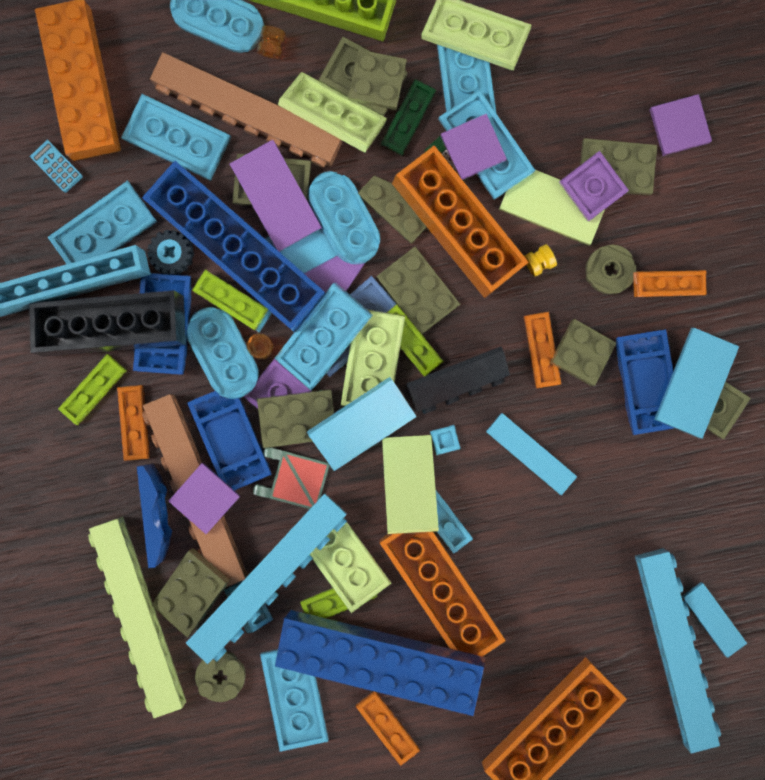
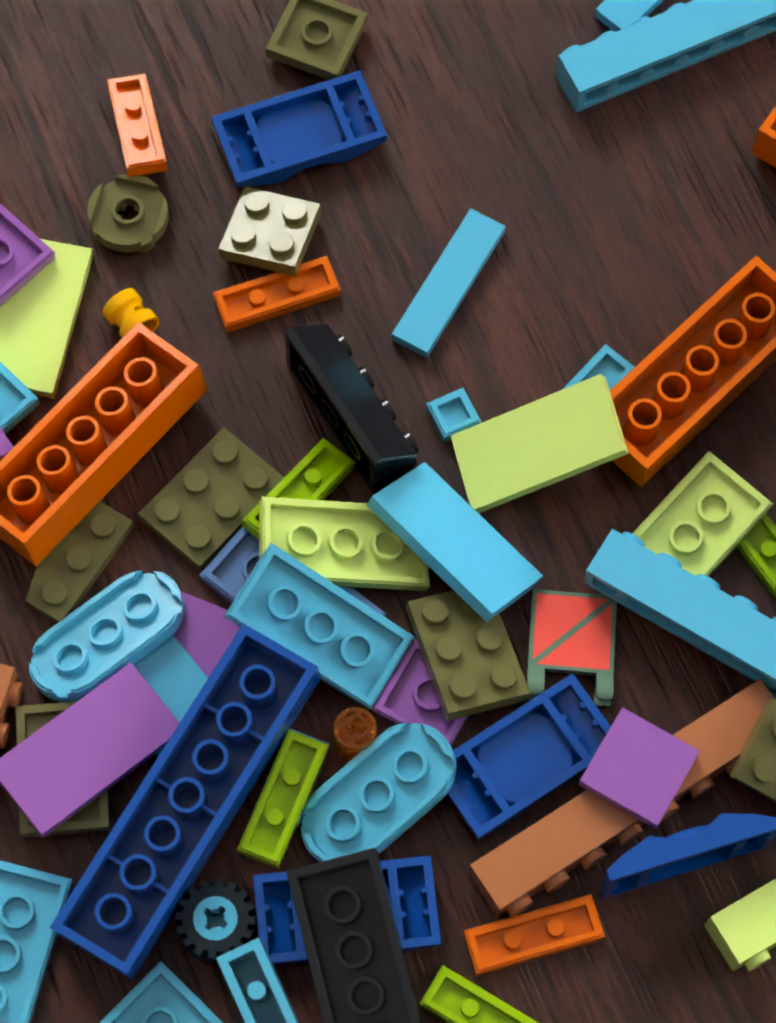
camera: 100 degrees left, 20 degrees down
(696, 383) = (288, 59): medium azure tile -> none

